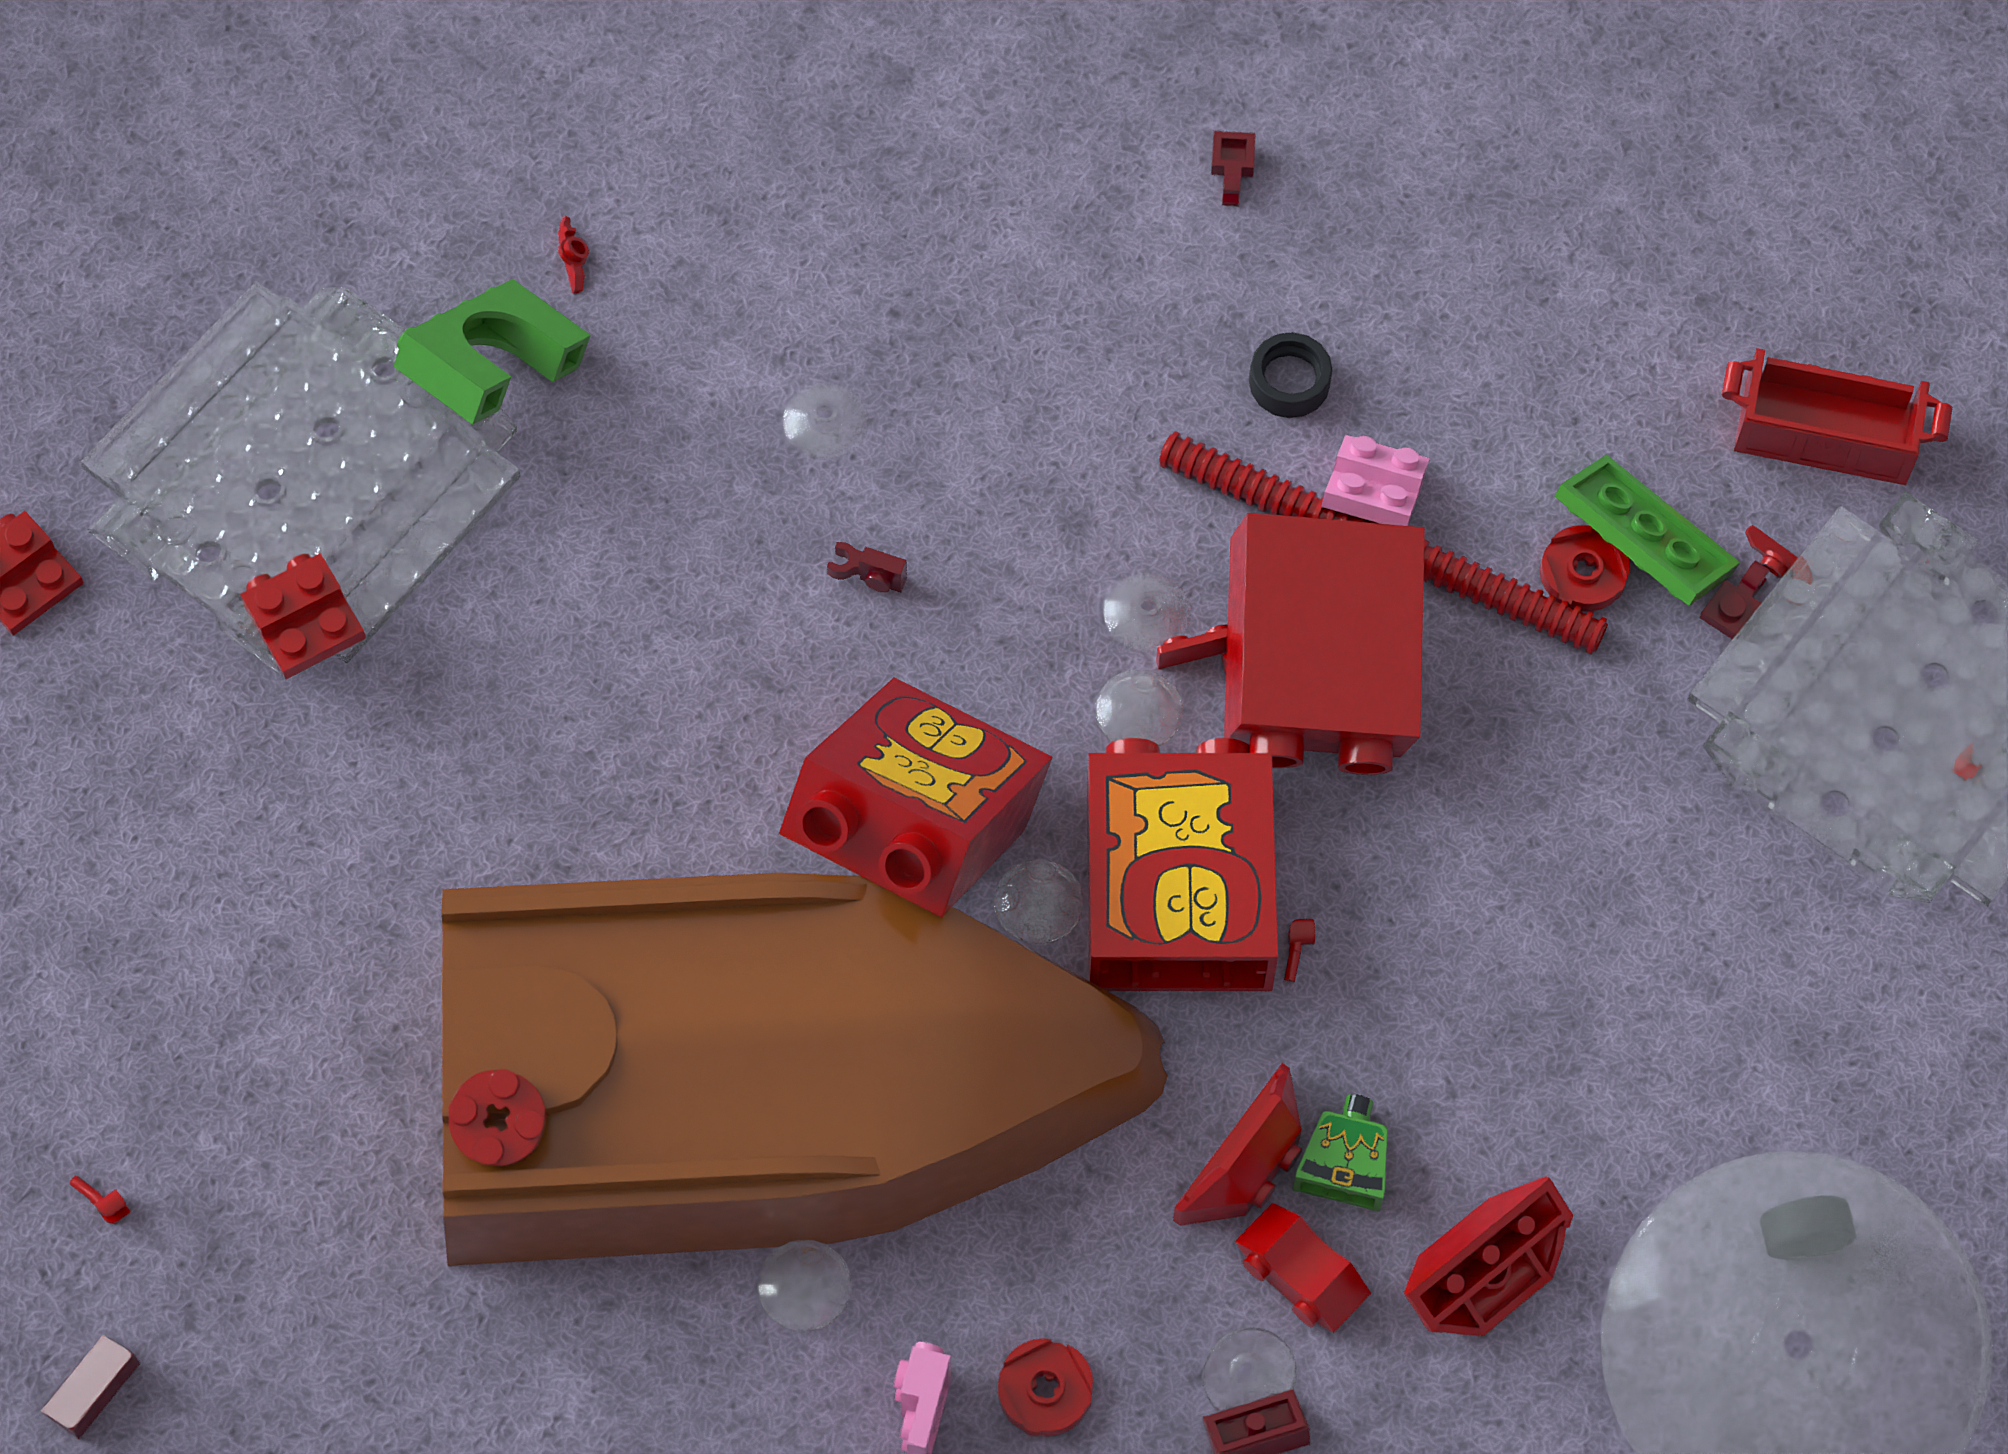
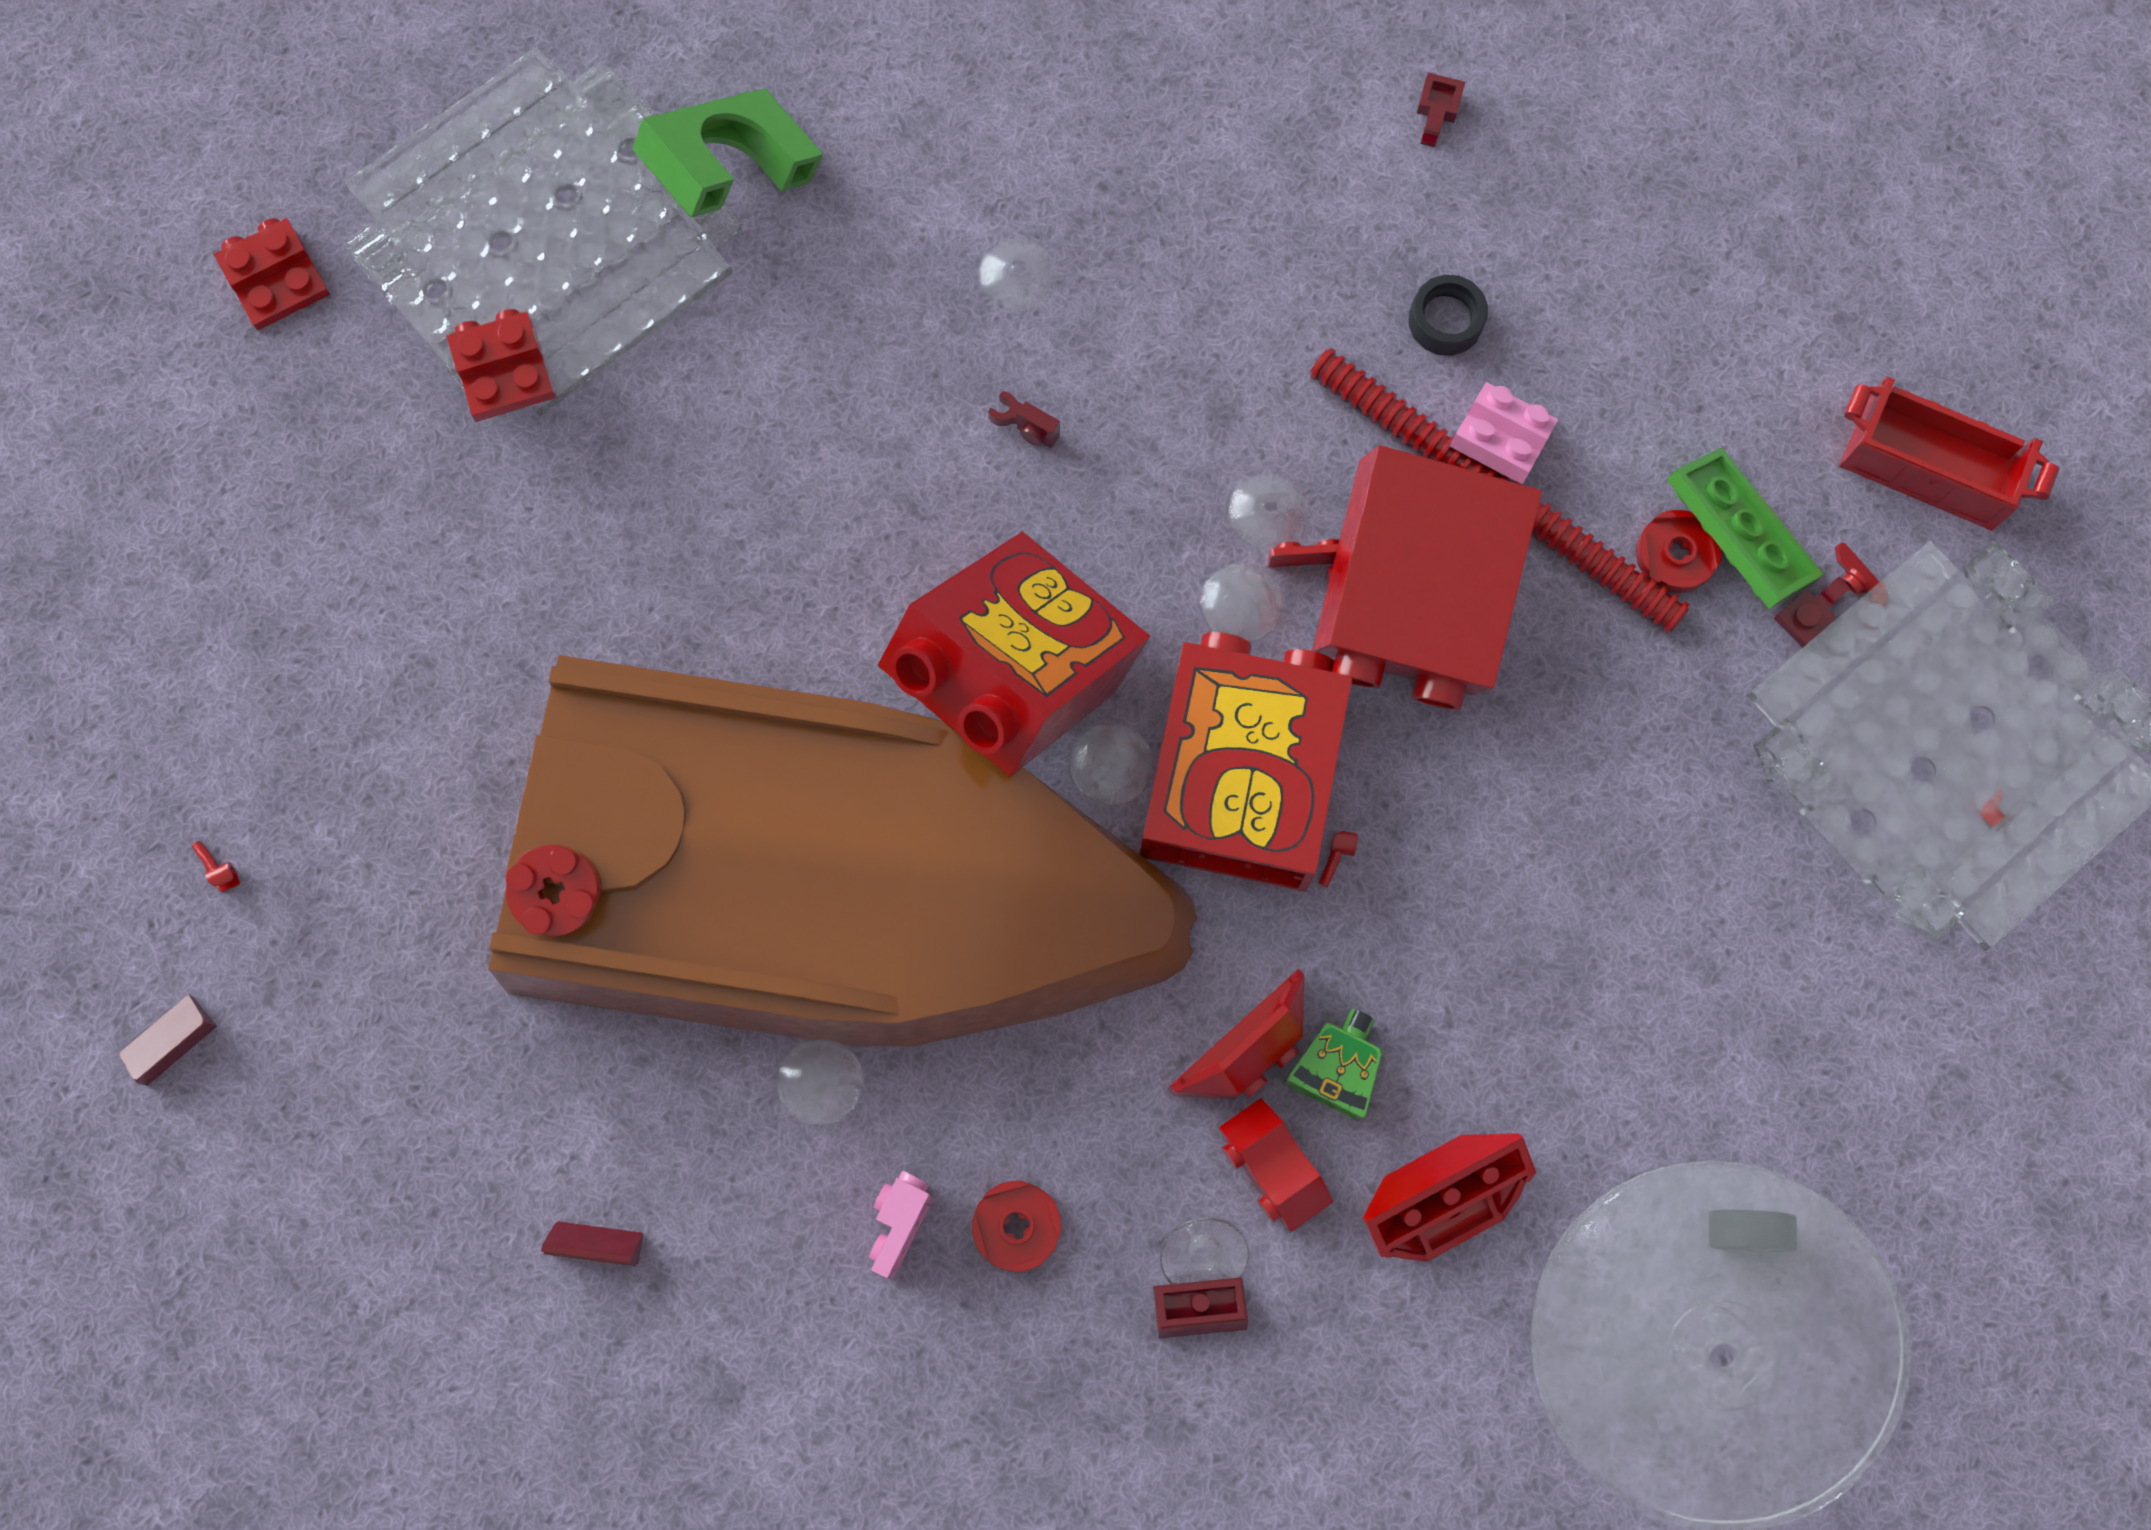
camera: 10 degrees right, 10 degrees up
(573, 253) = (827, 75): red piece -> none

